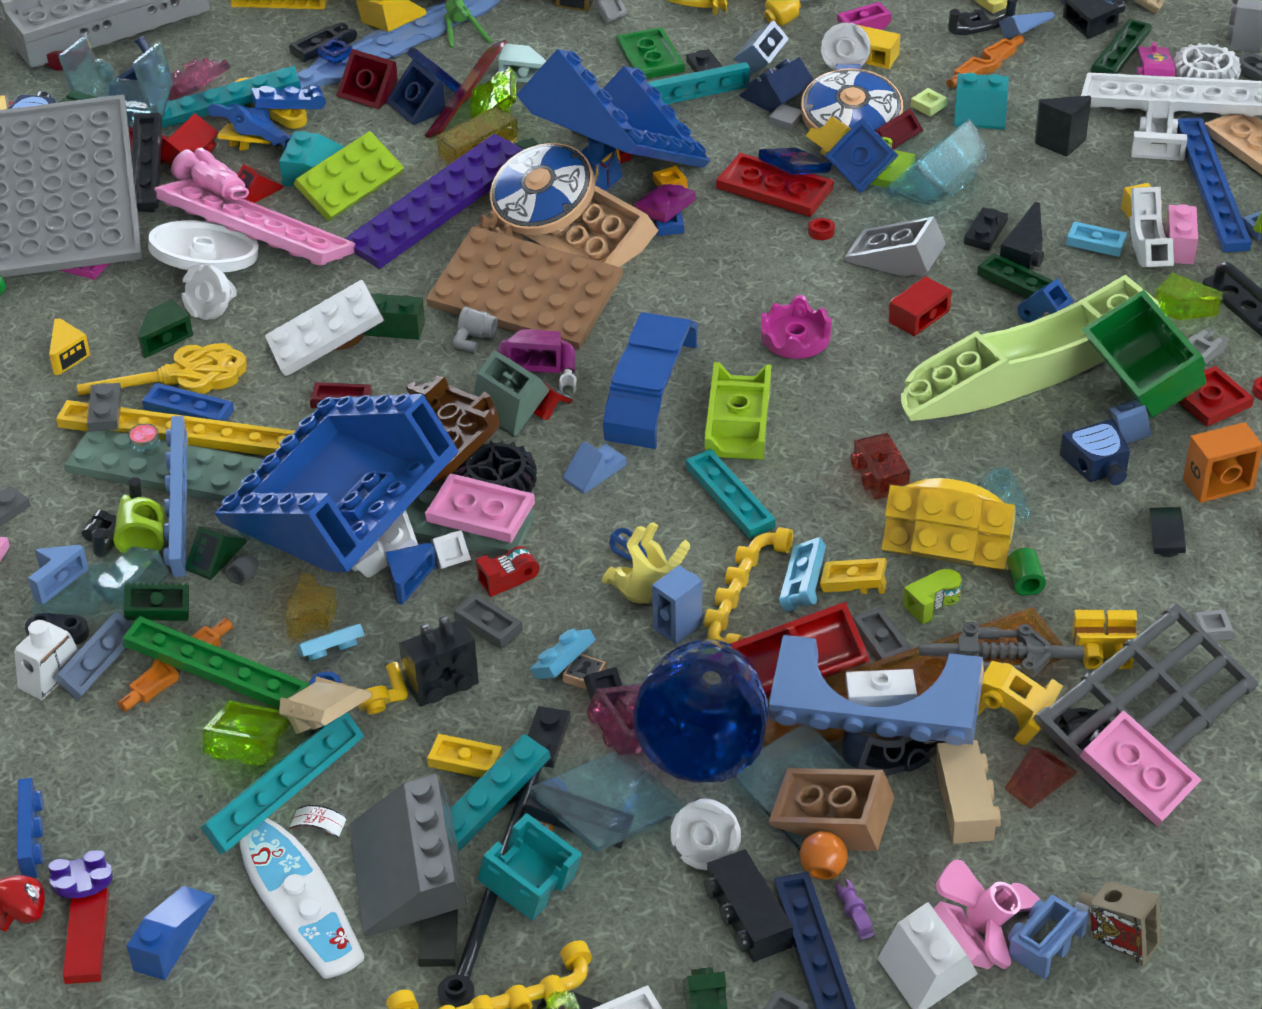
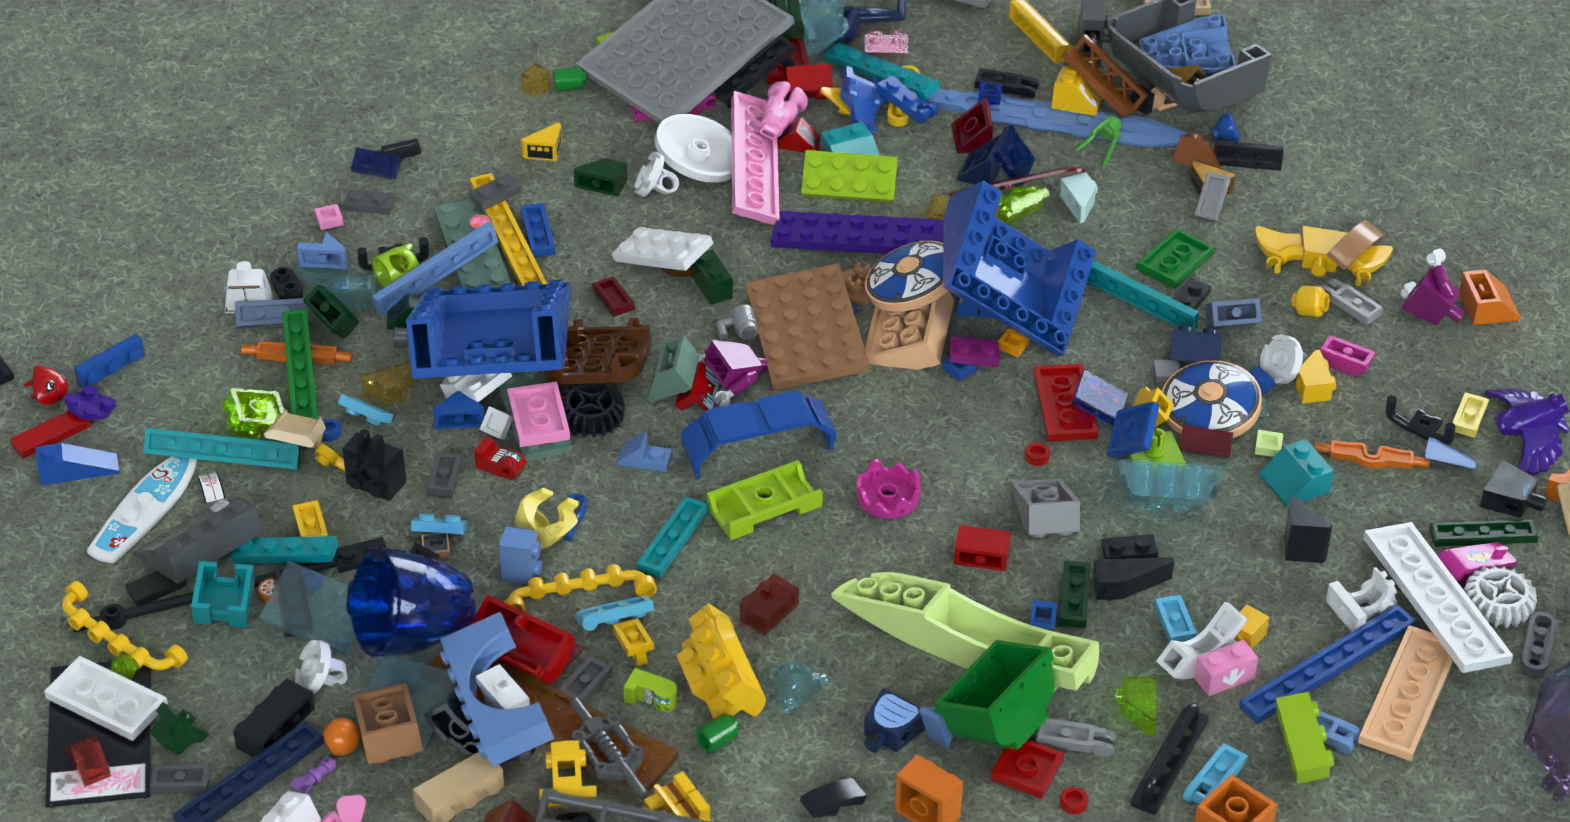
camera: 55 degrees right, 0 degrees up
(193, 369) = (581, 218): yellow piece -> none

